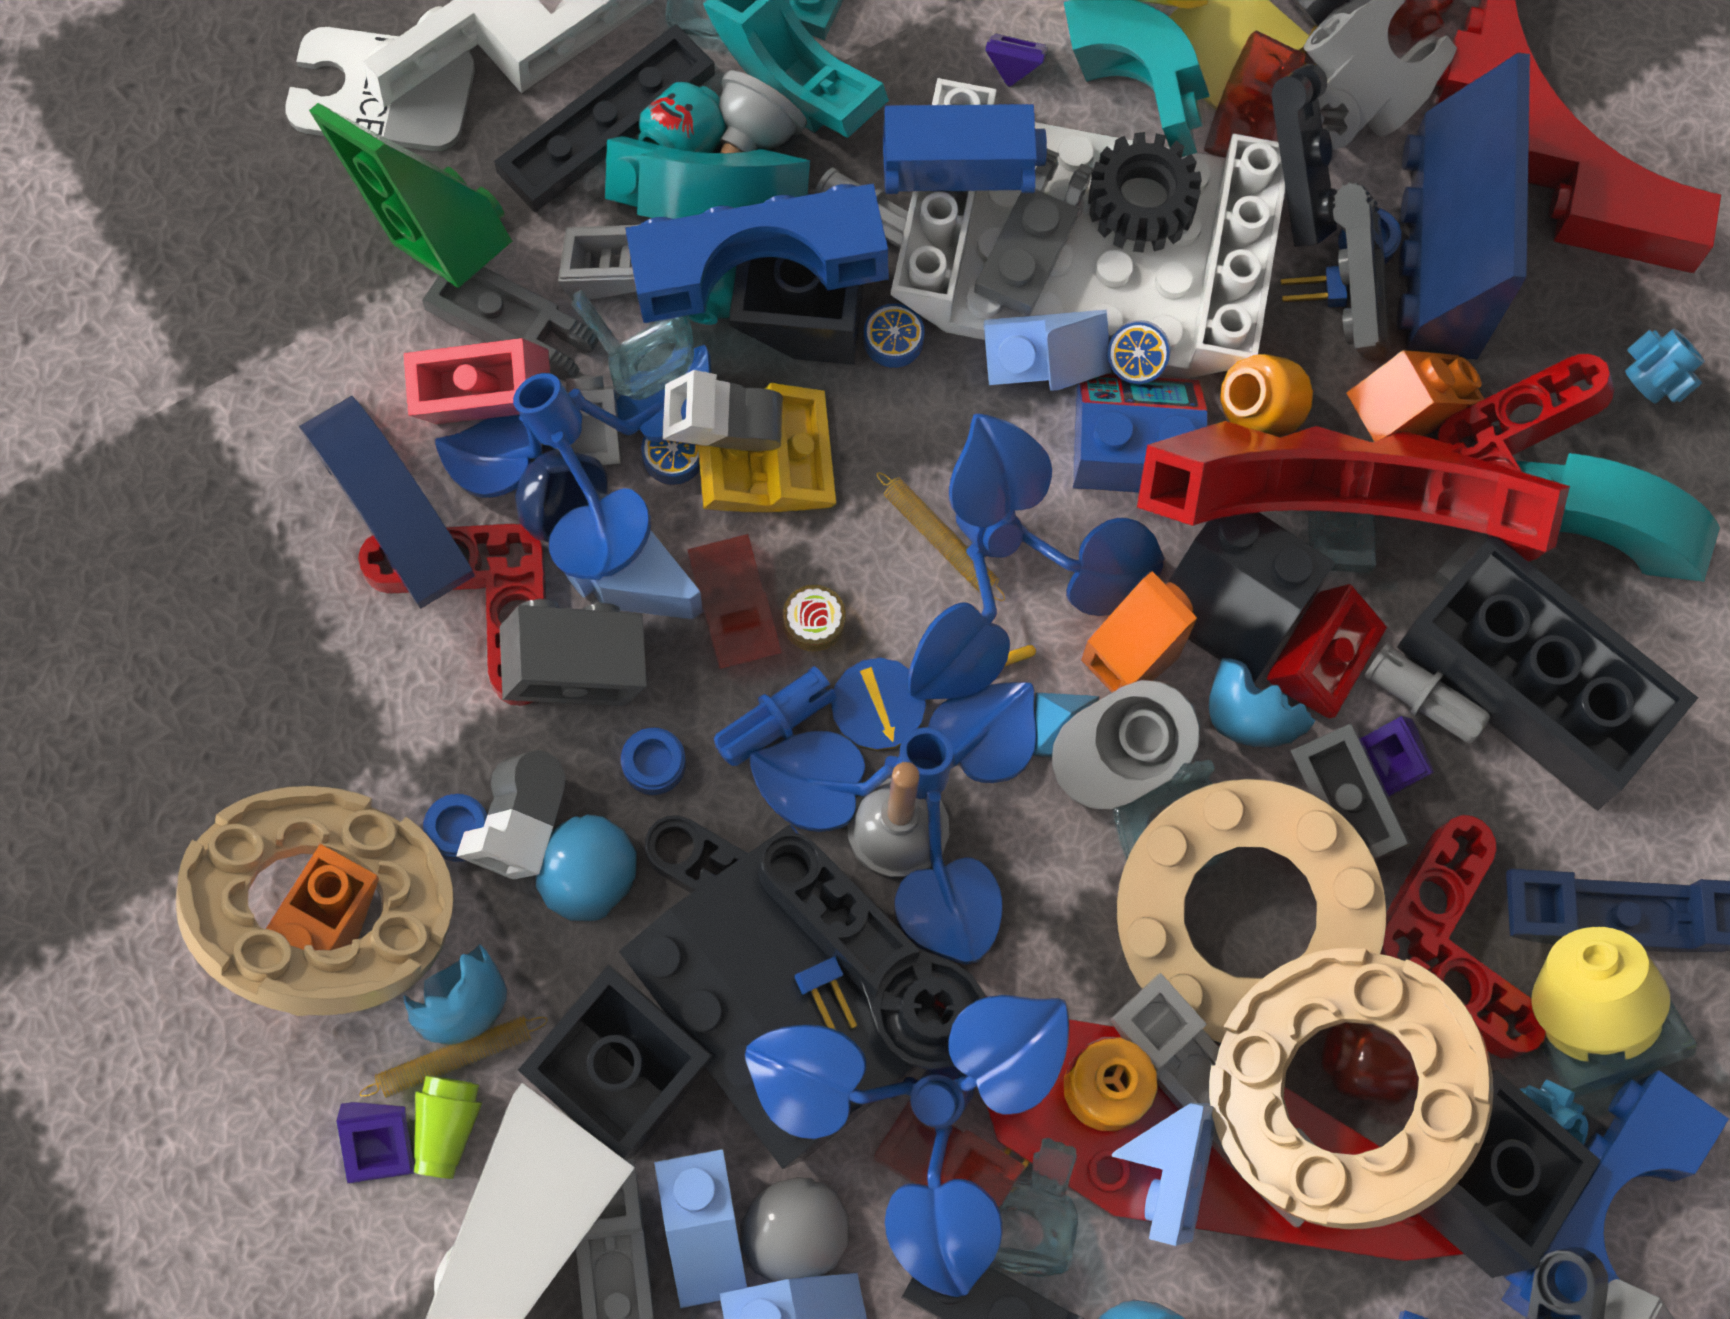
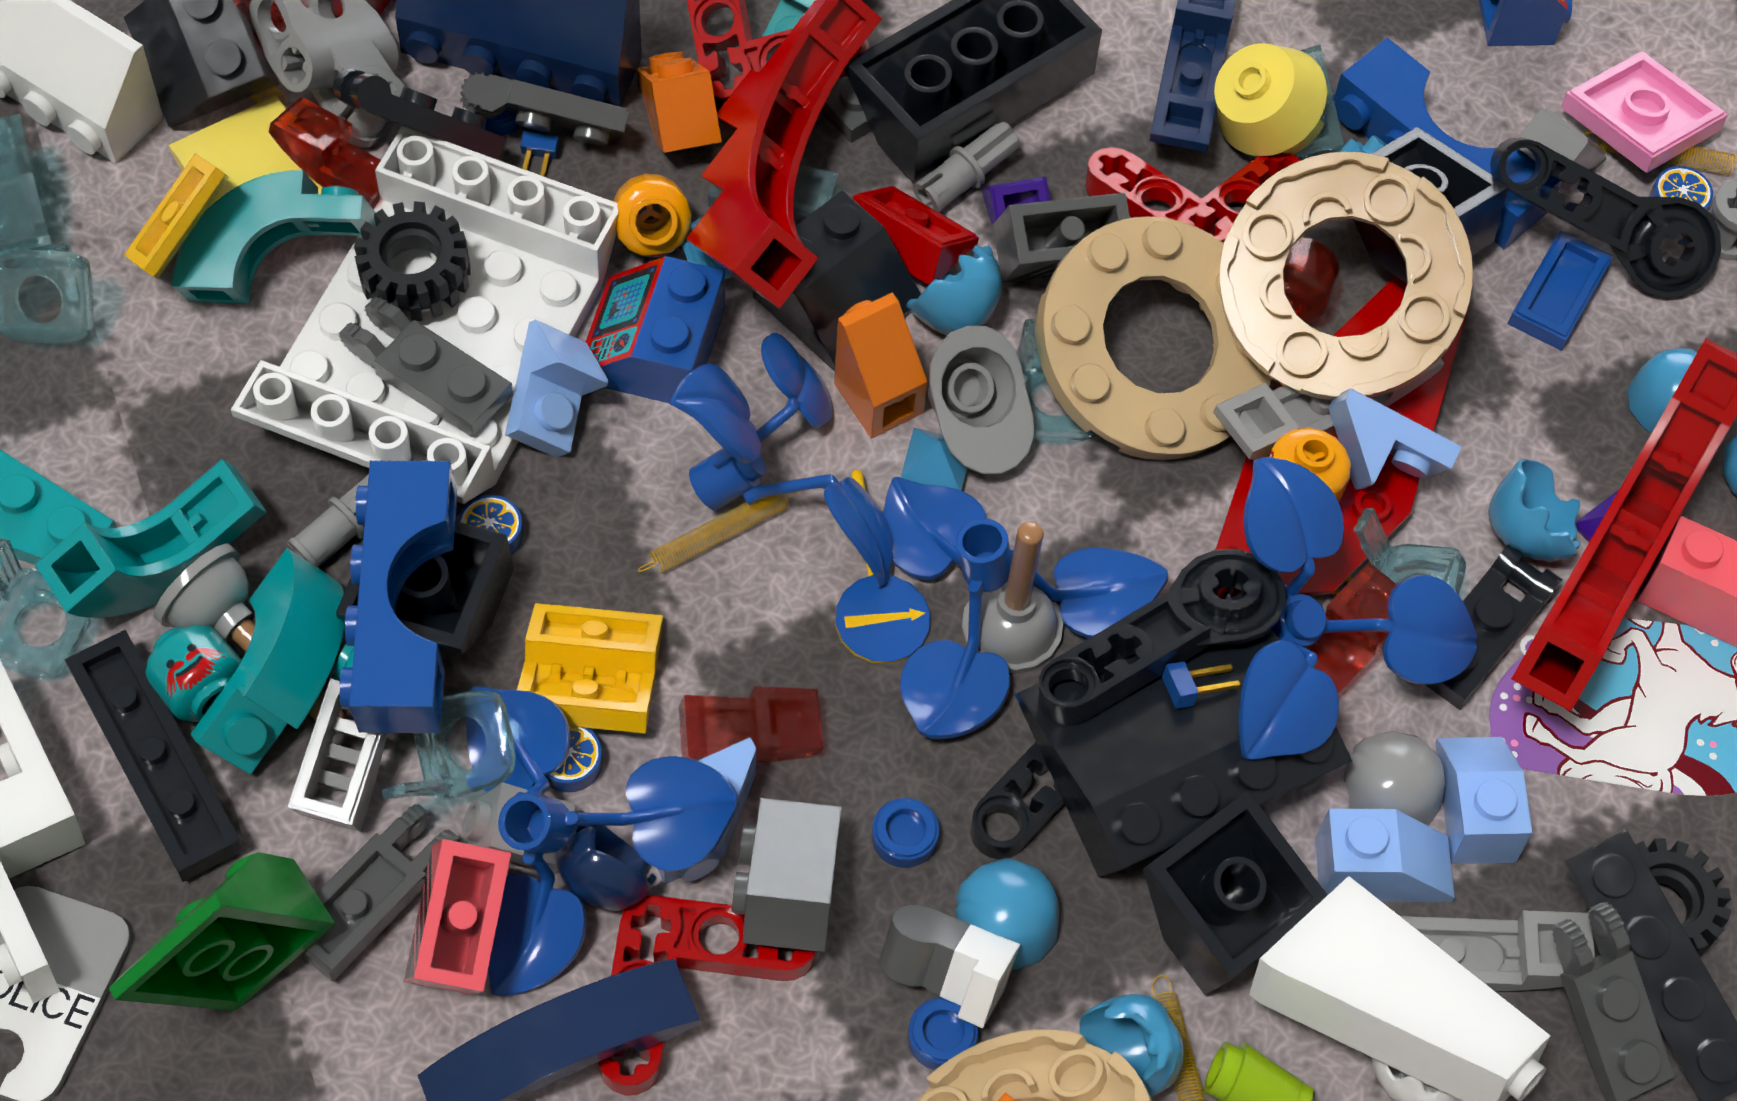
camera: 80 degrees left, 10 degrees down
(722, 414) = (562, 673): leg -> none
(774, 717) = (883, 706): blue axle -> none
(814, 617) = (782, 656): tile -> none
(961, 148) = (339, 389): blue brick -> none
(1014, 56) = (205, 353): dark purple slope -> none
(1139, 352) = (579, 307): blue tile -> none

